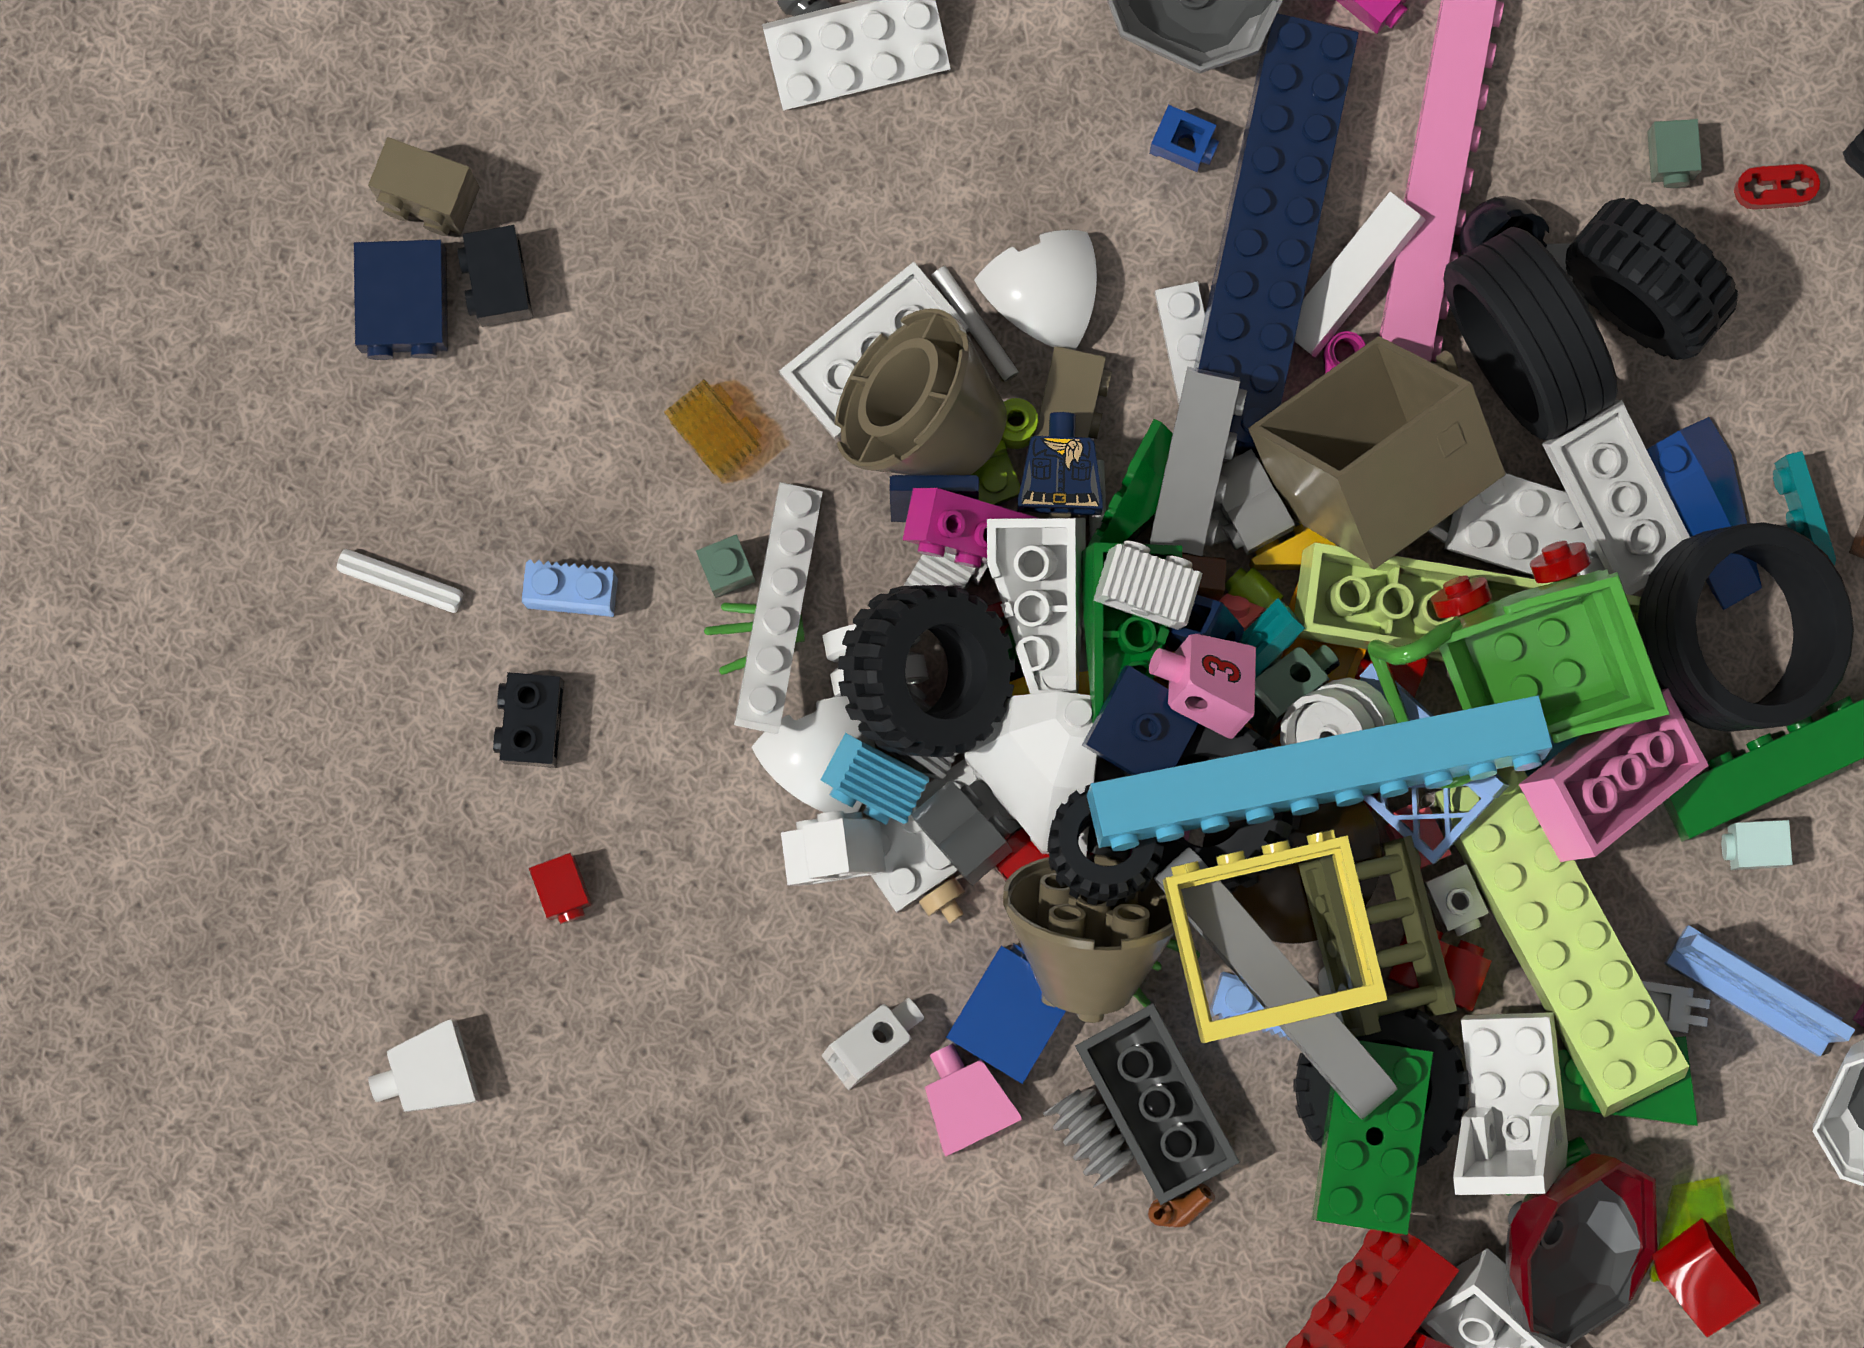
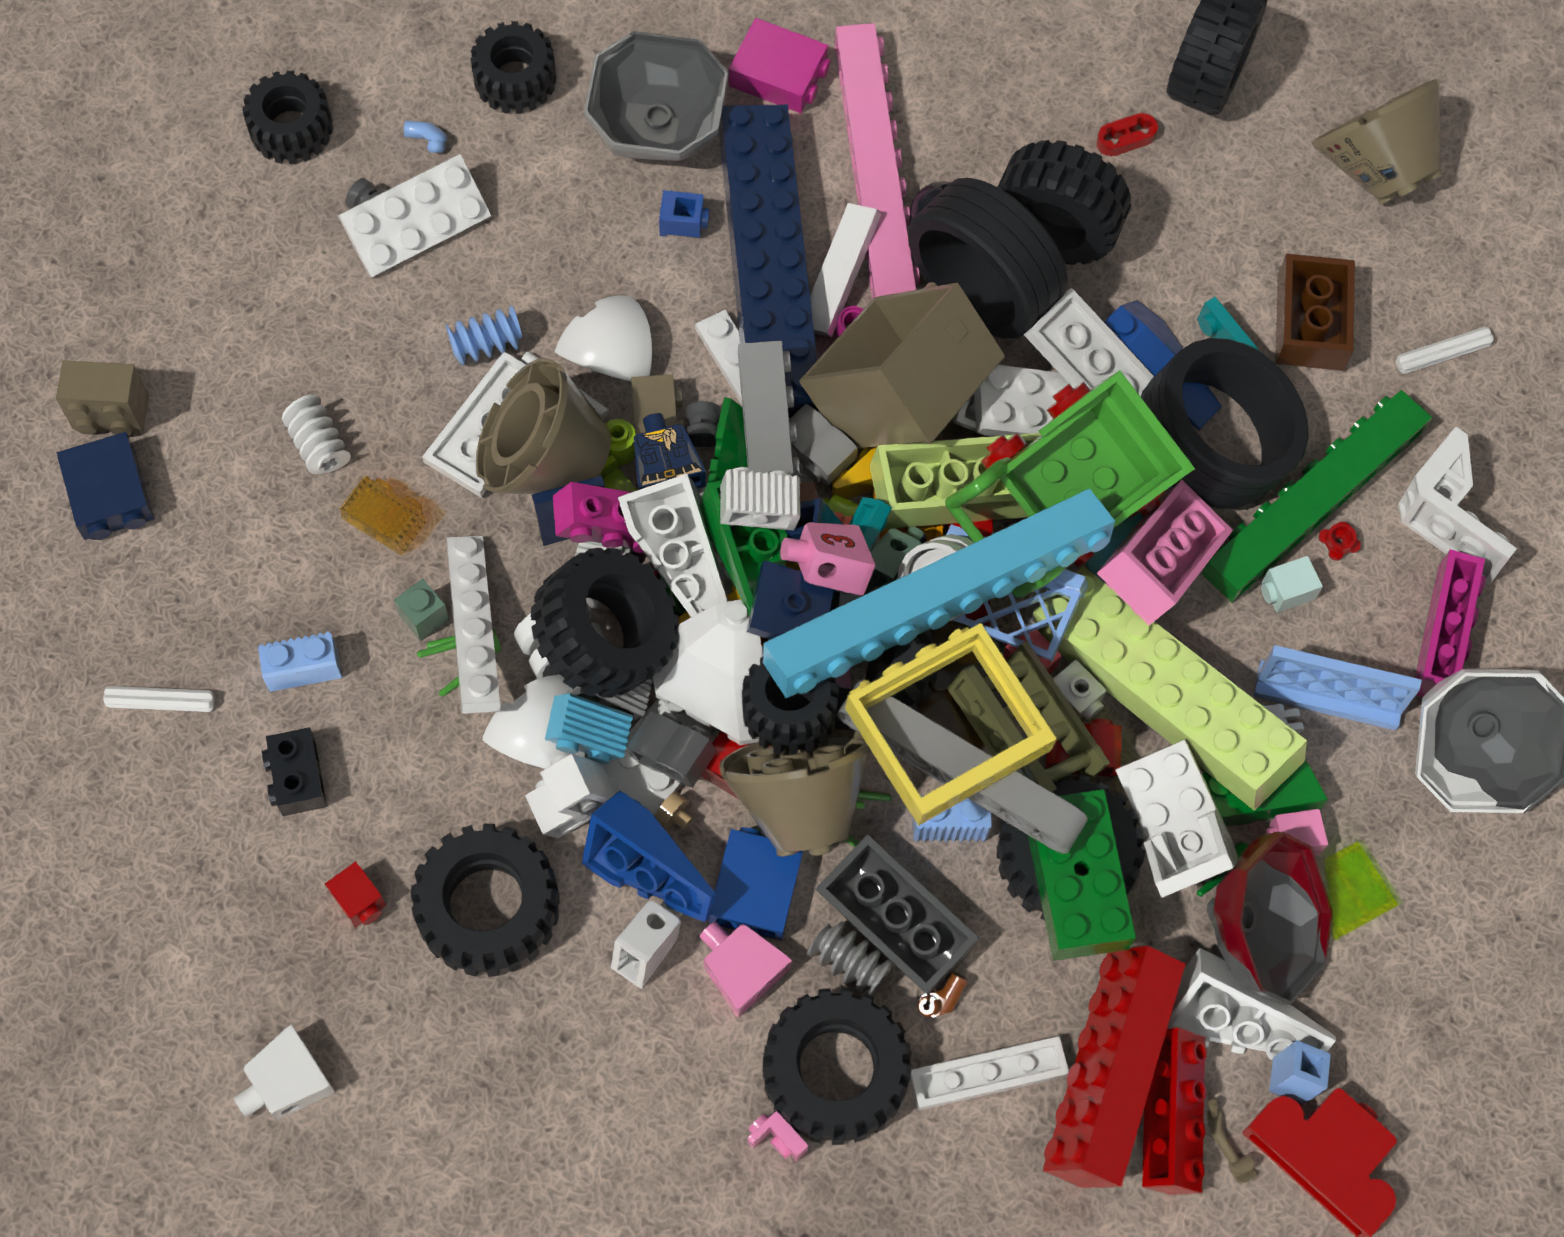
camera: 25 degrees left, 15 degrees down
(496, 276) = (179, 449): black brick -> none
(642, 930) = (472, 853): none -> black tyre
(658, 306) = (314, 435): none -> white piece
(882, 930) = (634, 849): none -> blue wedge
(896, 234) = (485, 336): none -> light blue piece
(953, 1313) = (785, 1138): none -> bright pink bracket
(1046, 1314) = (842, 1014): none -> black tyre
(1123, 427) = (702, 423): none -> dark grey wheel
(1203, 1310) = (989, 1073): none -> white plate
(1650, 1148) = (1304, 826): none -> bright pink brick
(1674, 152) = (1044, 123): sand green brick -> none
(1705, 1278) = (1379, 916): red piece -> none
(1849, 796) = (1346, 533): none -> red plate

